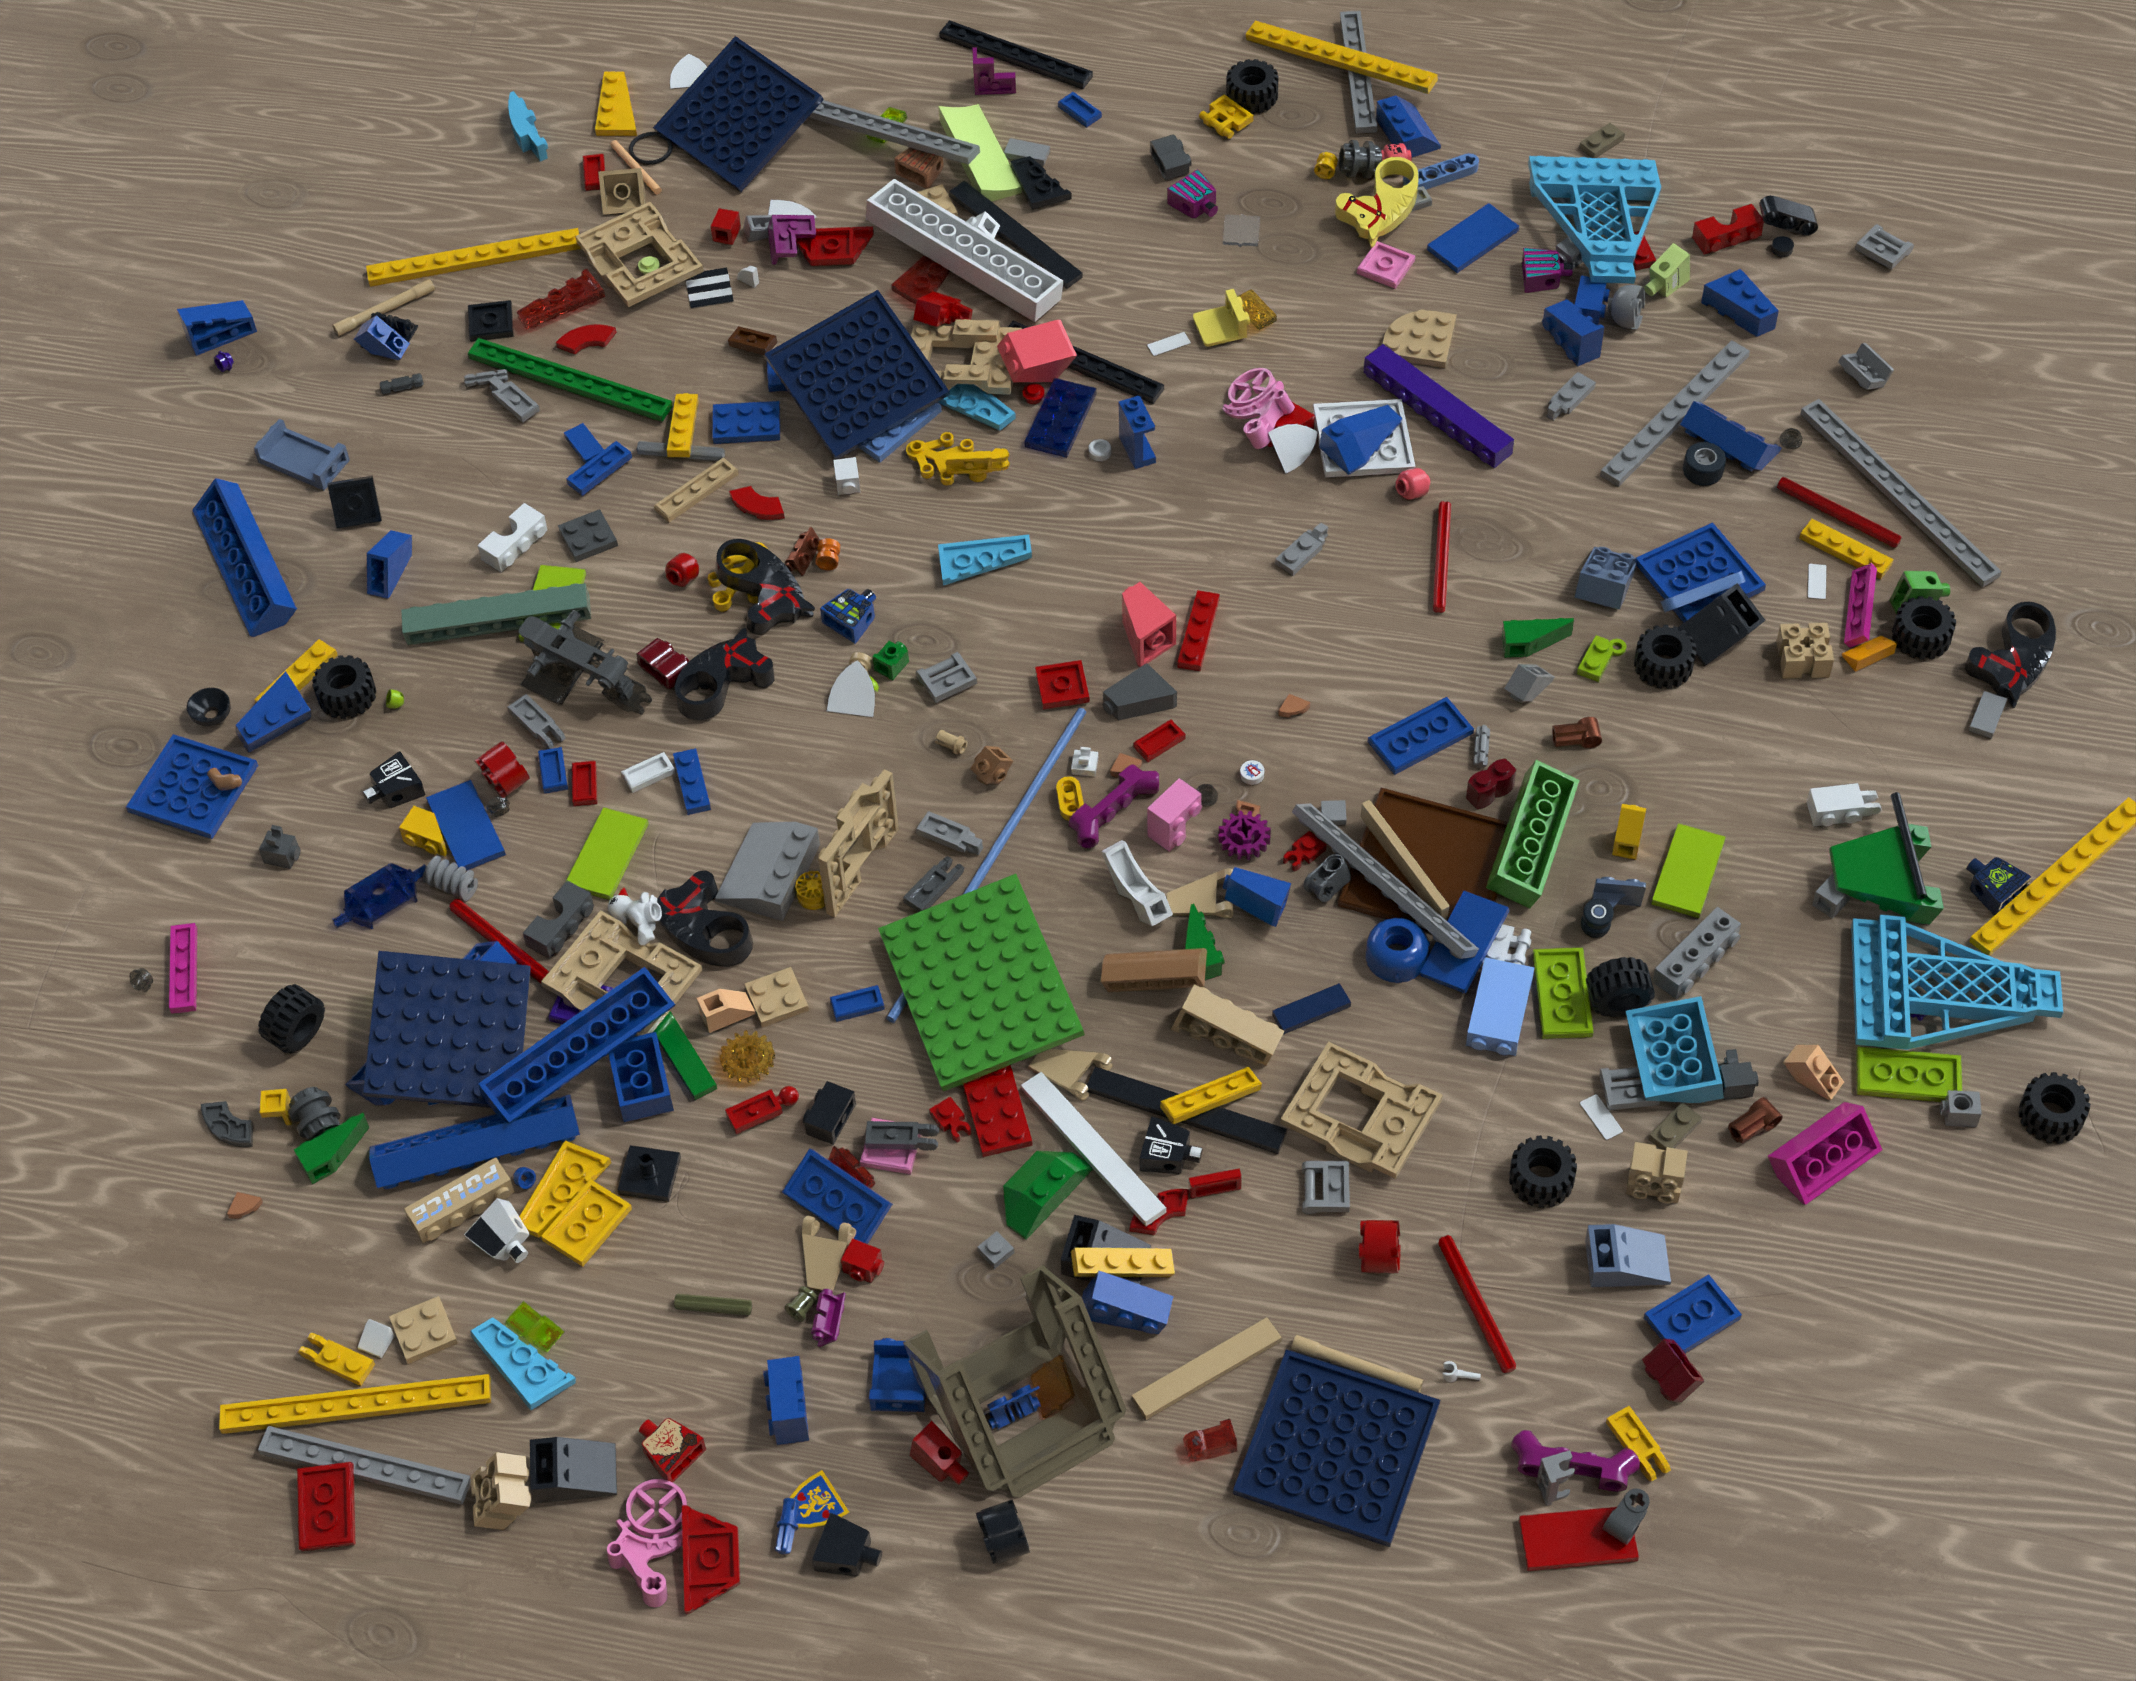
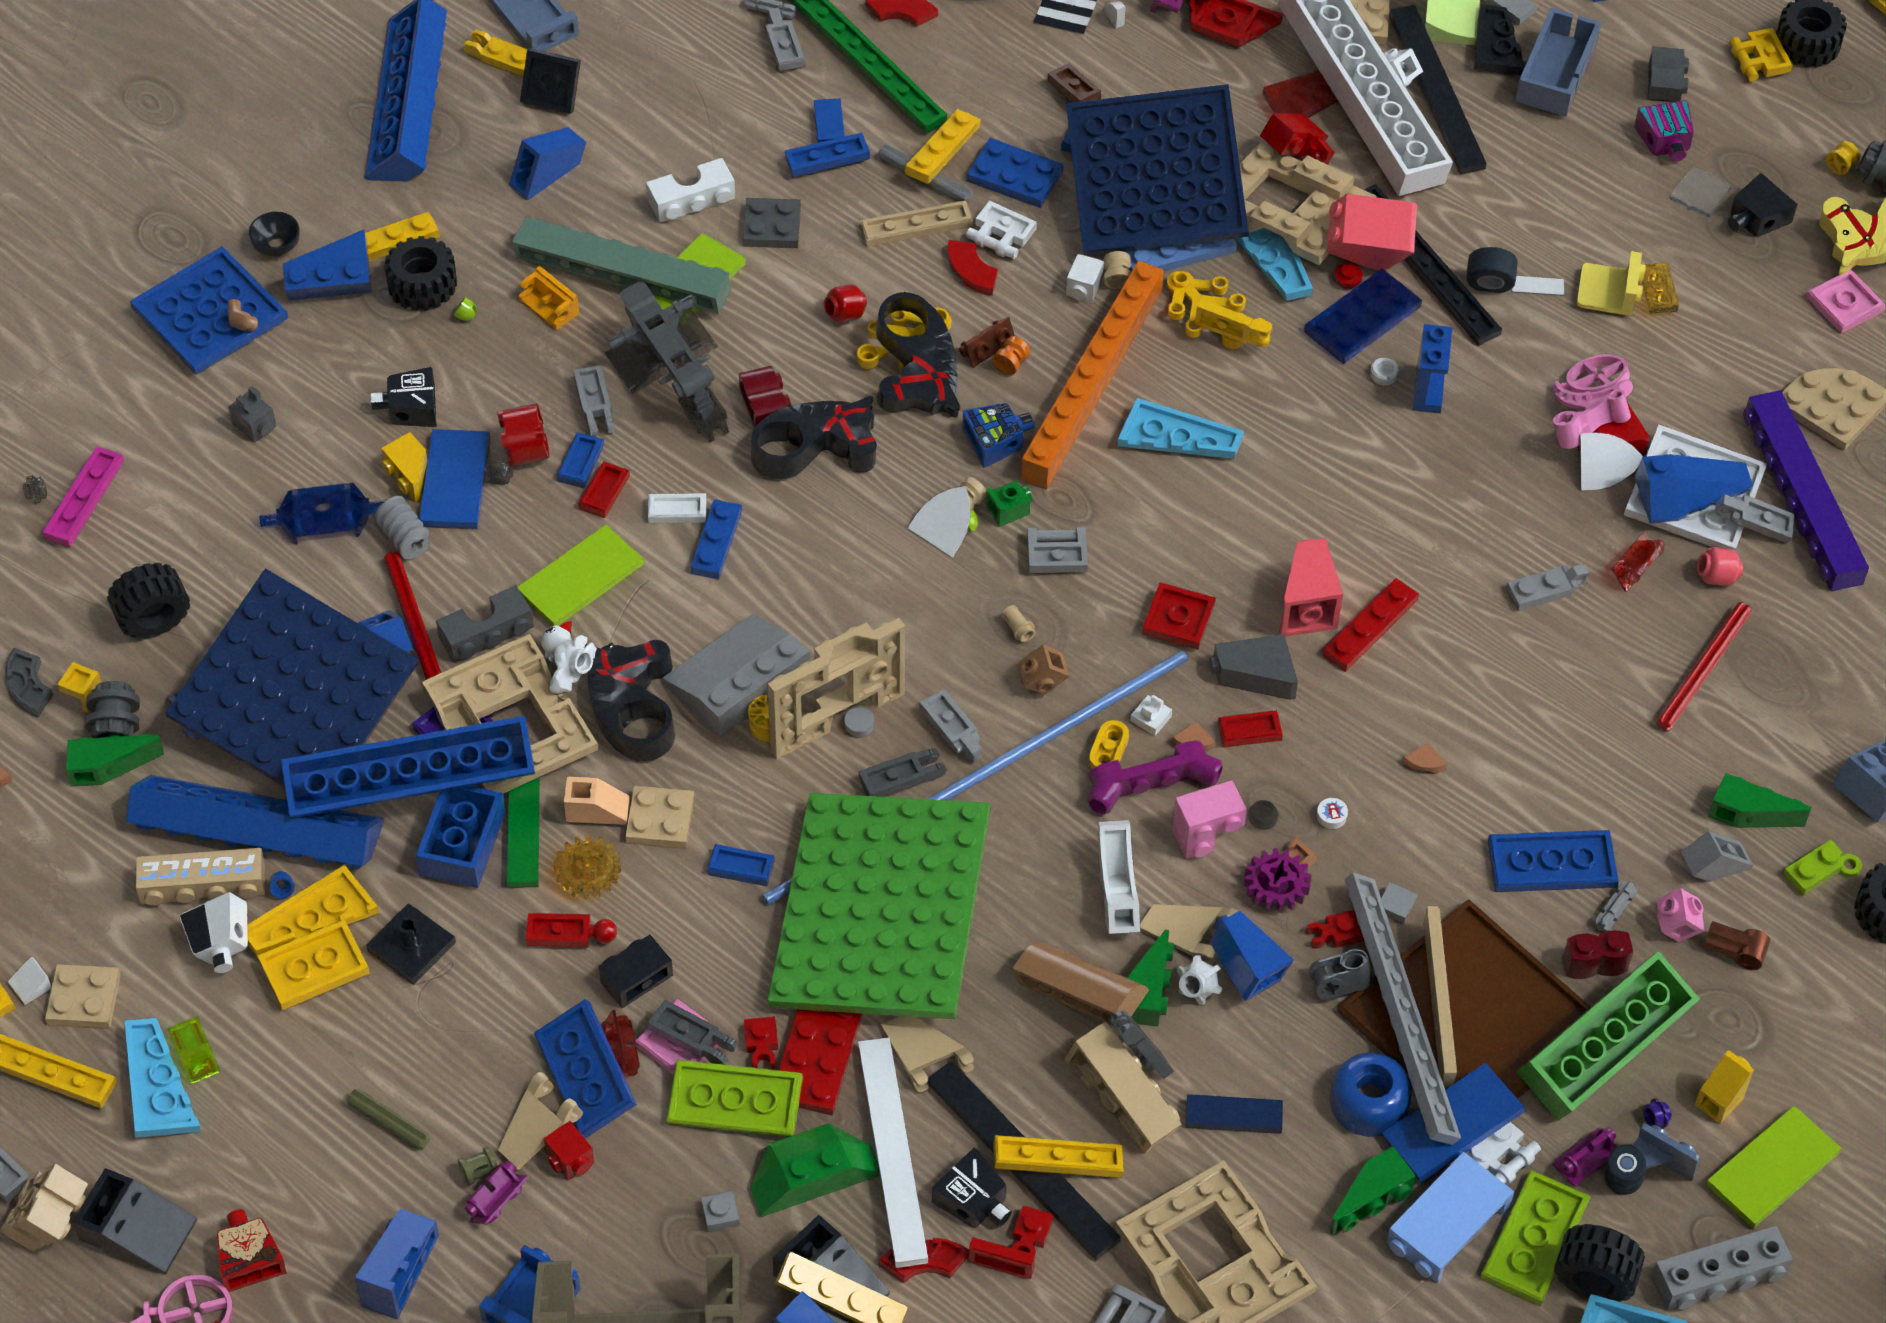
camera: 25 degrees right, 0 degrees up
(298, 499) = (496, 52): none -> yellow hinge
(454, 662) = (549, 298): none -> light orange hinge
(763, 462) = (1004, 223): none -> white plate
(867, 460) = (1117, 269): none -> tan wheel
(879, 863) = (859, 722): none -> light grey tile
(895, 542) = (1092, 375): none -> orange brick
(958, 1166) = (735, 1098): none -> lime tile
(1091, 180) = (1558, 62): none -> sand blue piece
(1134, 345) = (1492, 269): none -> black wheel
(1222, 1153) = (1032, 1229): none -> red plate
(1225, 989) = (1140, 1043): none -> dark grey hinge
(1233, 936) = (1199, 980): none -> white rock
(1292, 223) = (1761, 208): none -> black torso
(1355, 504) = (1637, 560): none -> clear red hinge
(1418, 438) = (1757, 516): none -> light grey hinge
(1439, 1006) = (1378, 1184): none -> green slope
(1529, 731) = (1680, 915): none -> bright pink brick
(1564, 921) = (1586, 1156): none -> magenta hinge
(1592, 871) = (1657, 1113): none -> dark purple plate

